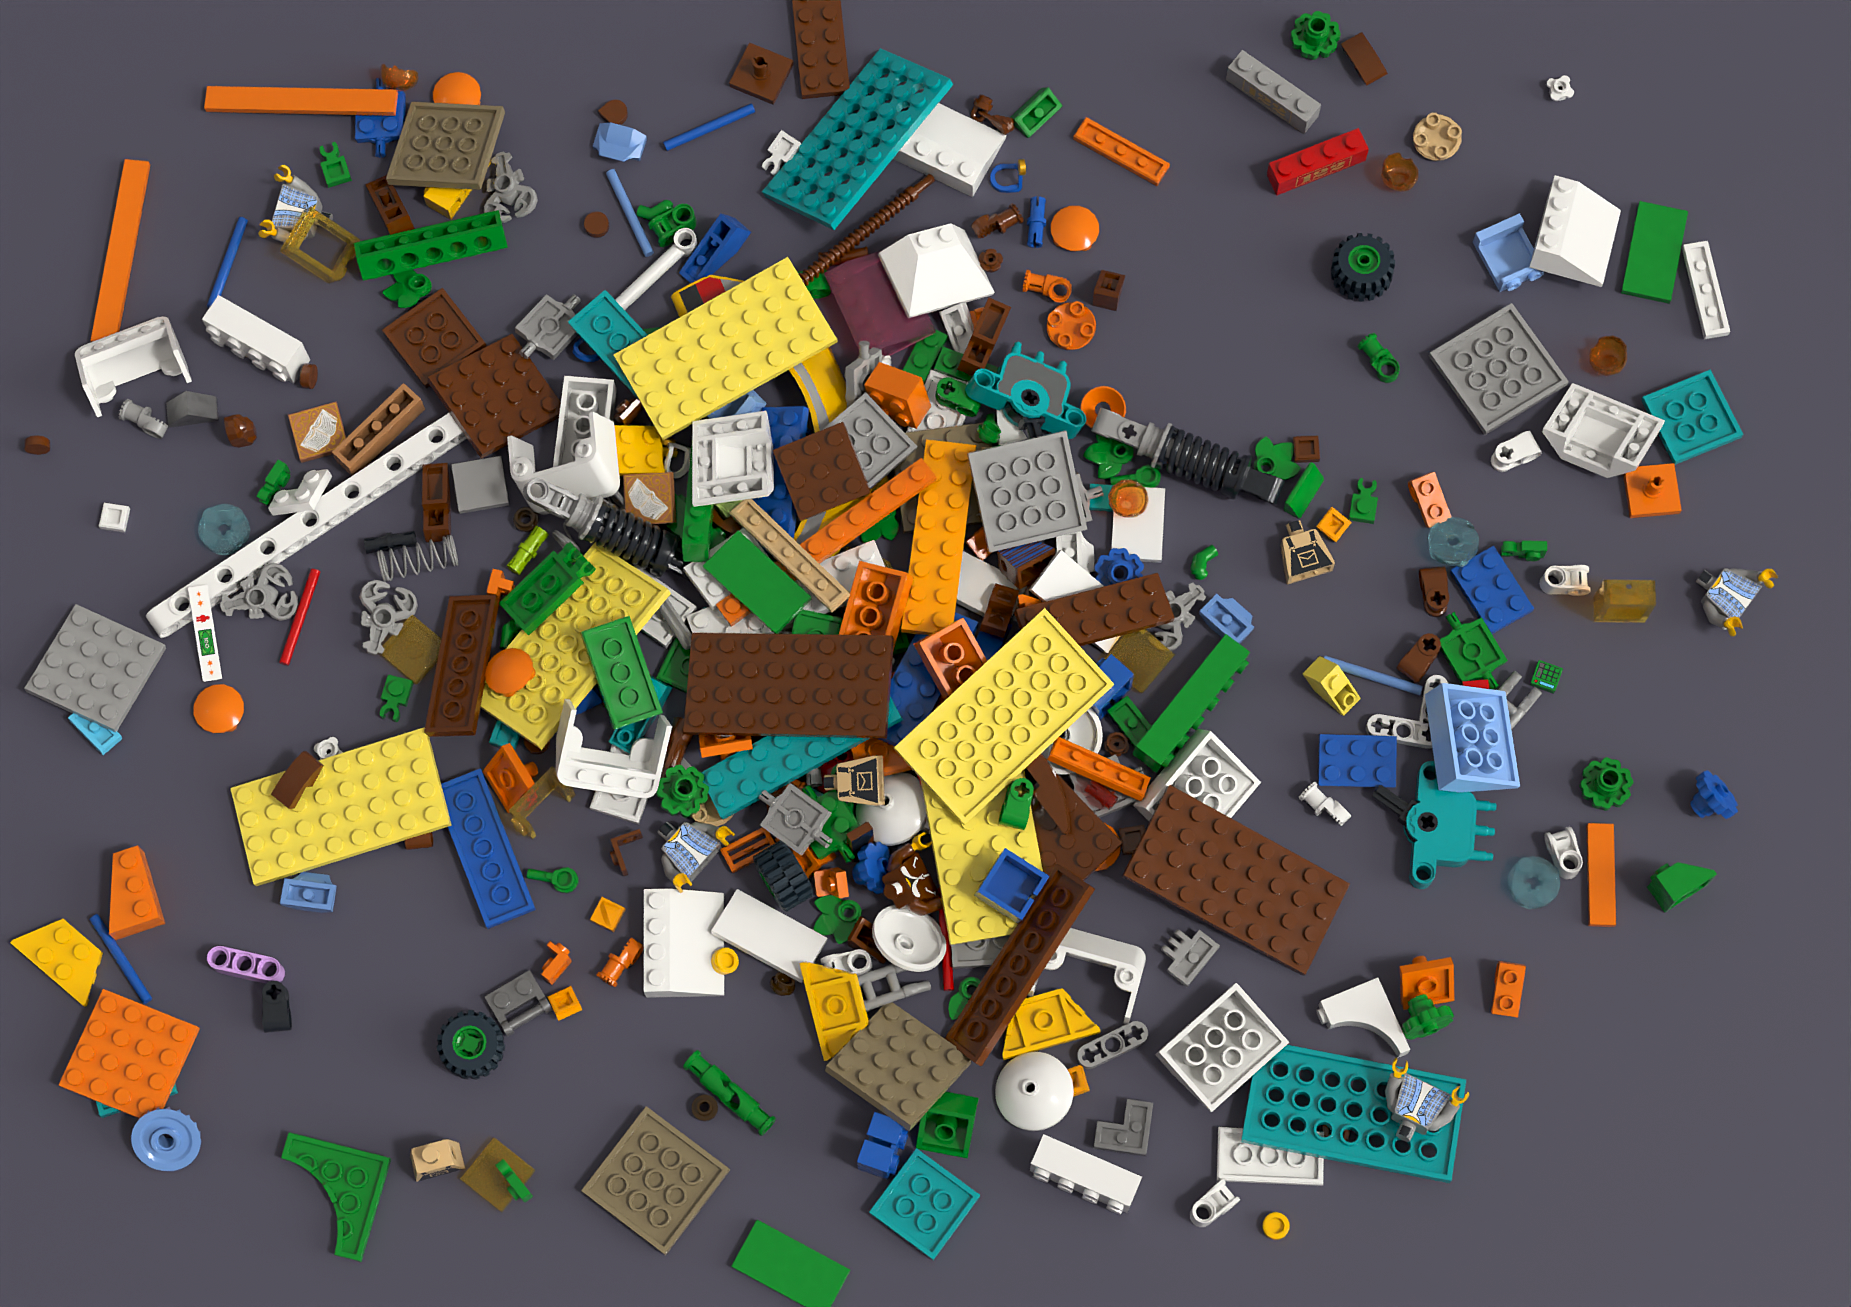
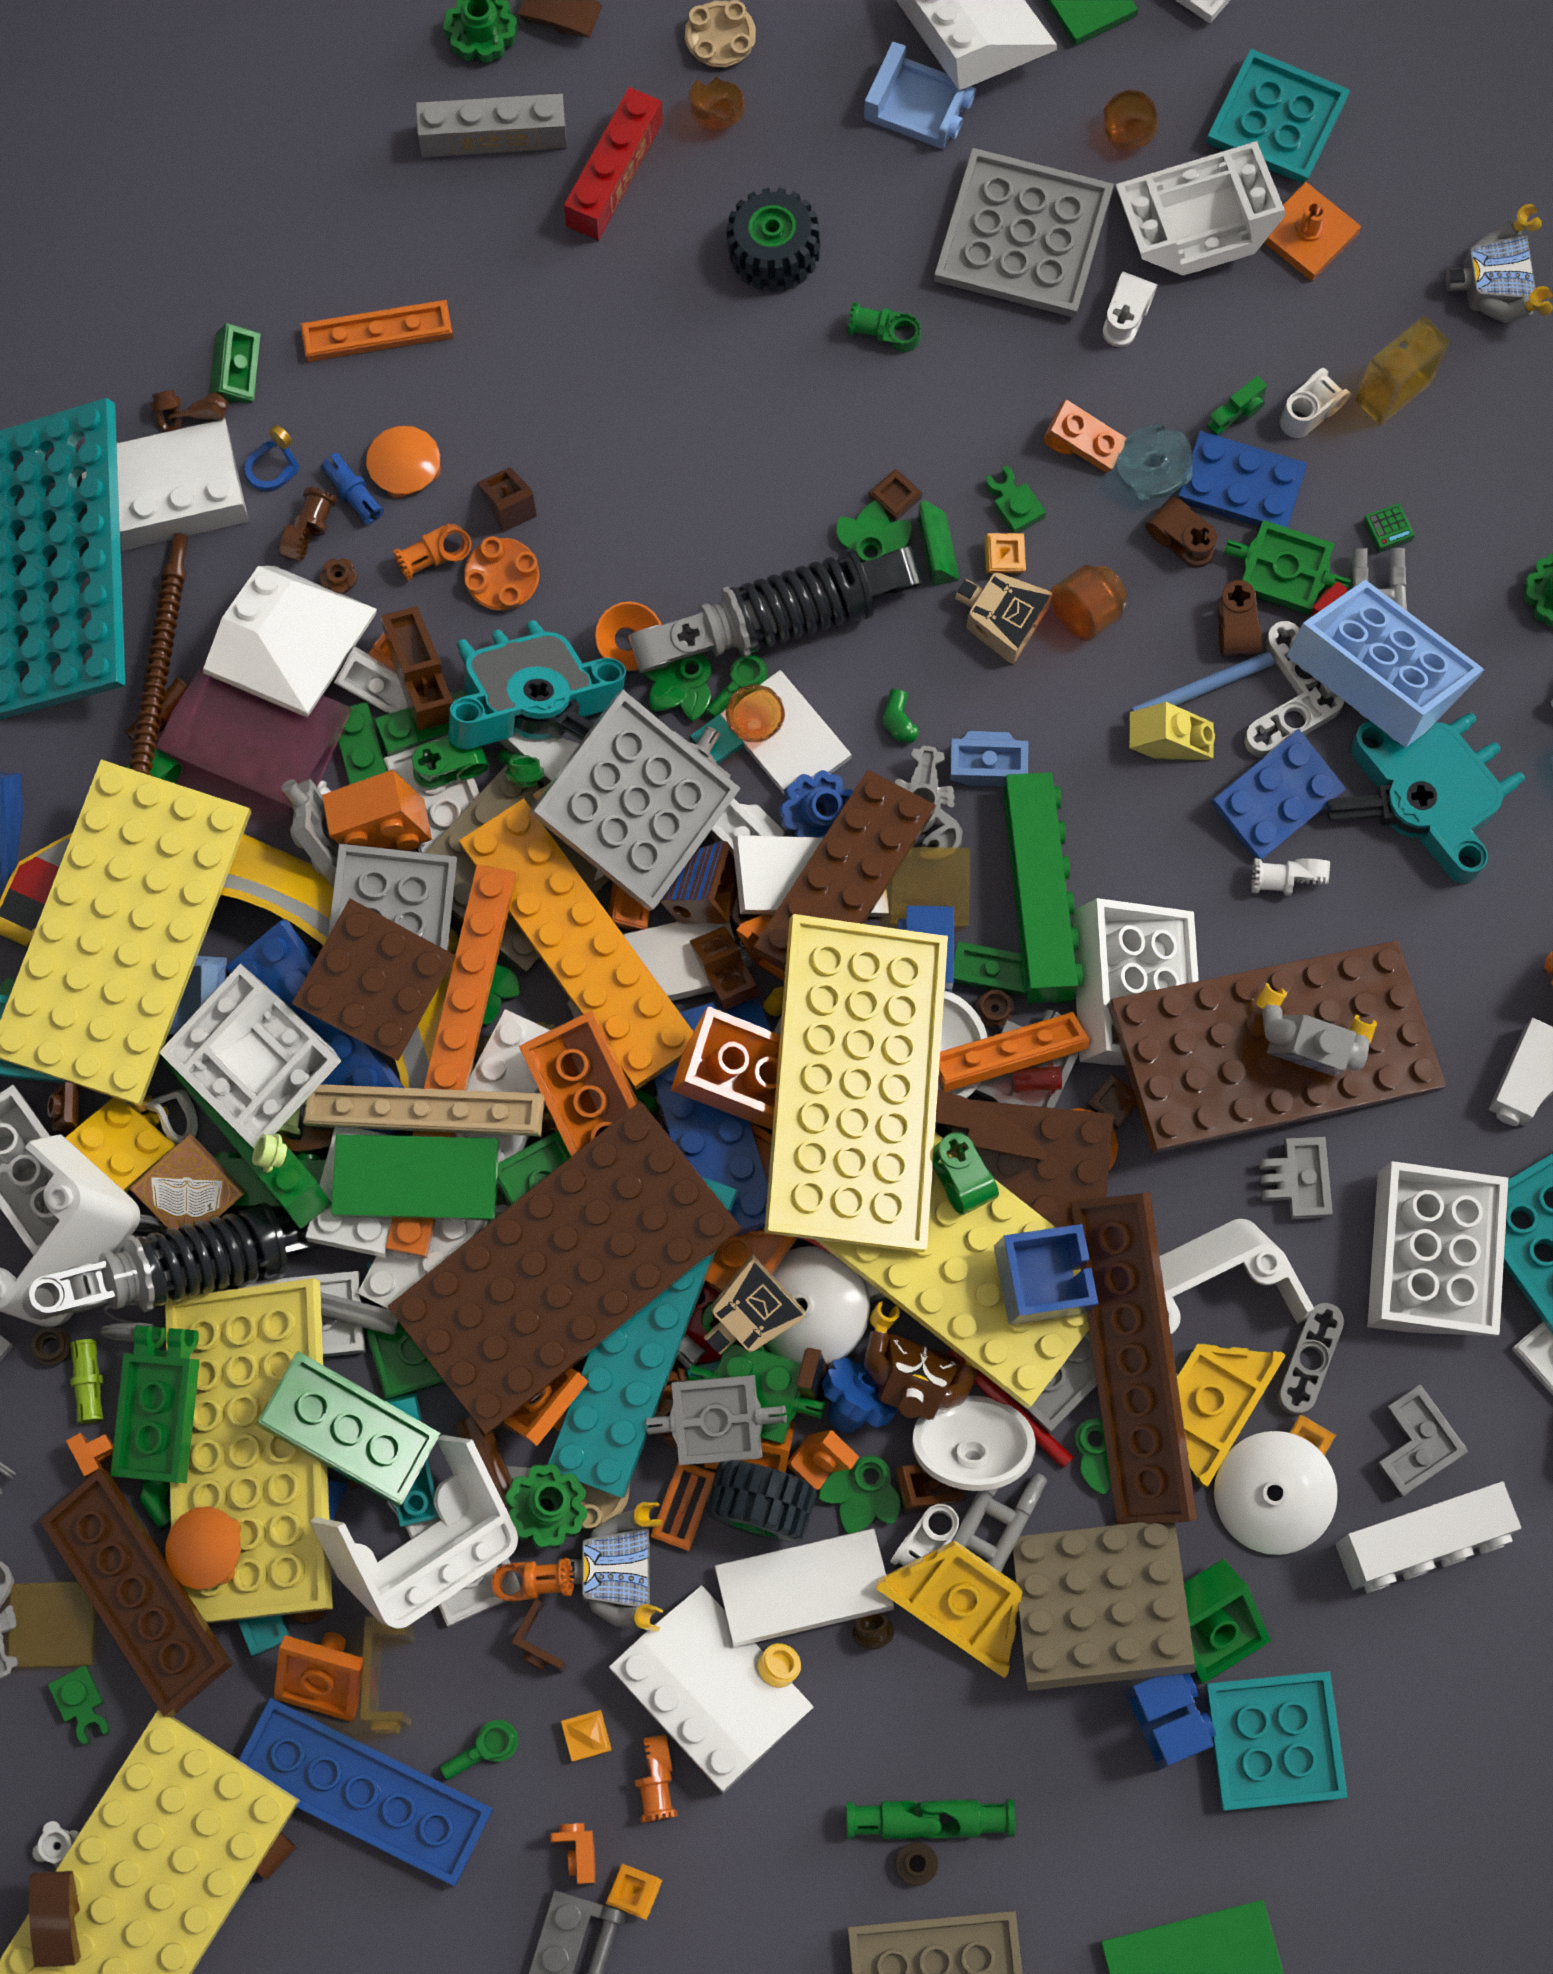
camera: 45 degrees left, 0 degrees up
(646, 820) = (532, 1579): none -> orange connector
(697, 510) = (269, 1152): none -> yellowish green plate
(1249, 891) = (1311, 1040): none -> light grey torso
(1352, 583) = (1089, 601): none -> clear orange piece

